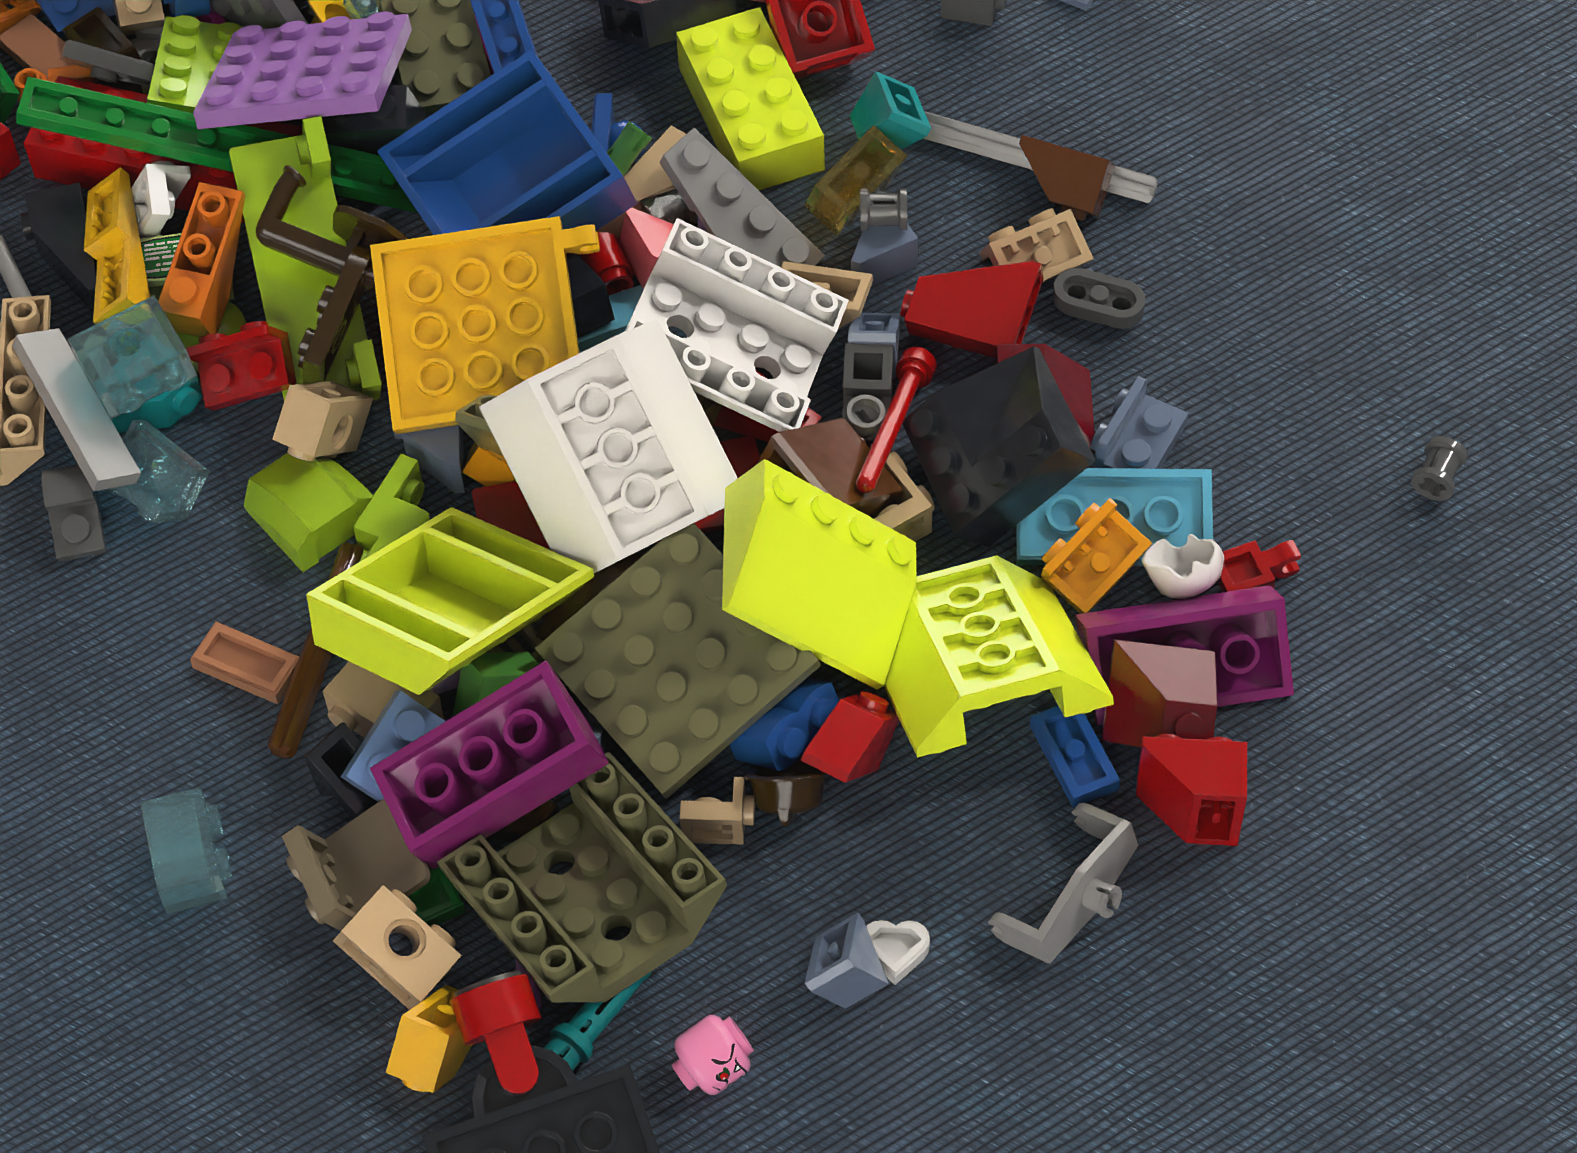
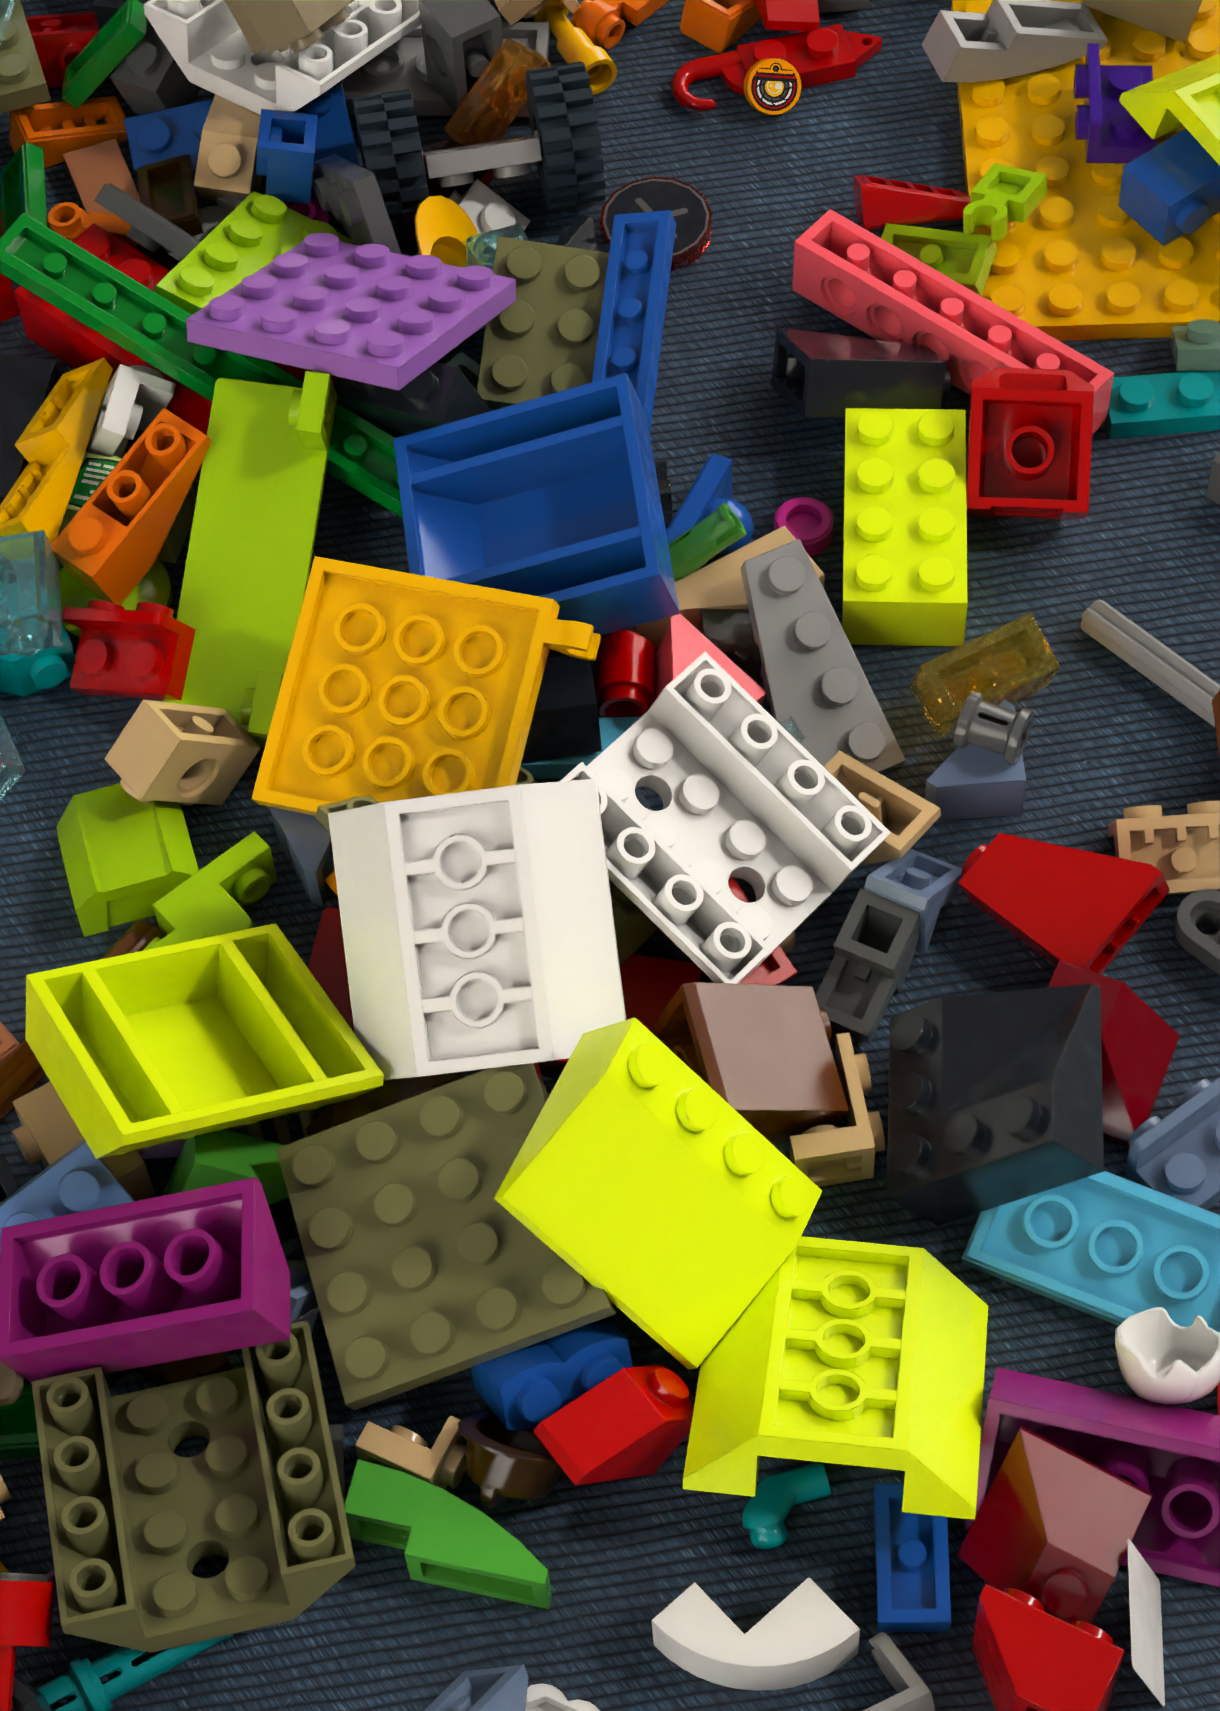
camera: 25 degrees right, 0 degrees up
(349, 263) = (264, 616): dark brown plate -> none
(678, 116) = (808, 521): none -> dark pink tile
(771, 855) = (442, 1537): none -> bright green slope
(871, 411) = (858, 988): light grey hinge -> none
(891, 109) = (1069, 601): teal slope -> none
(914, 372) = (944, 955): red piece -> none
(968, 758) = (774, 1499): none -> teal arm
(1024, 837) = (786, 1648): none -> white brick
(1094, 557) = (1056, 1297): light orange bracket -> none
(1245, 733) = (1145, 1623): none -> white sticker

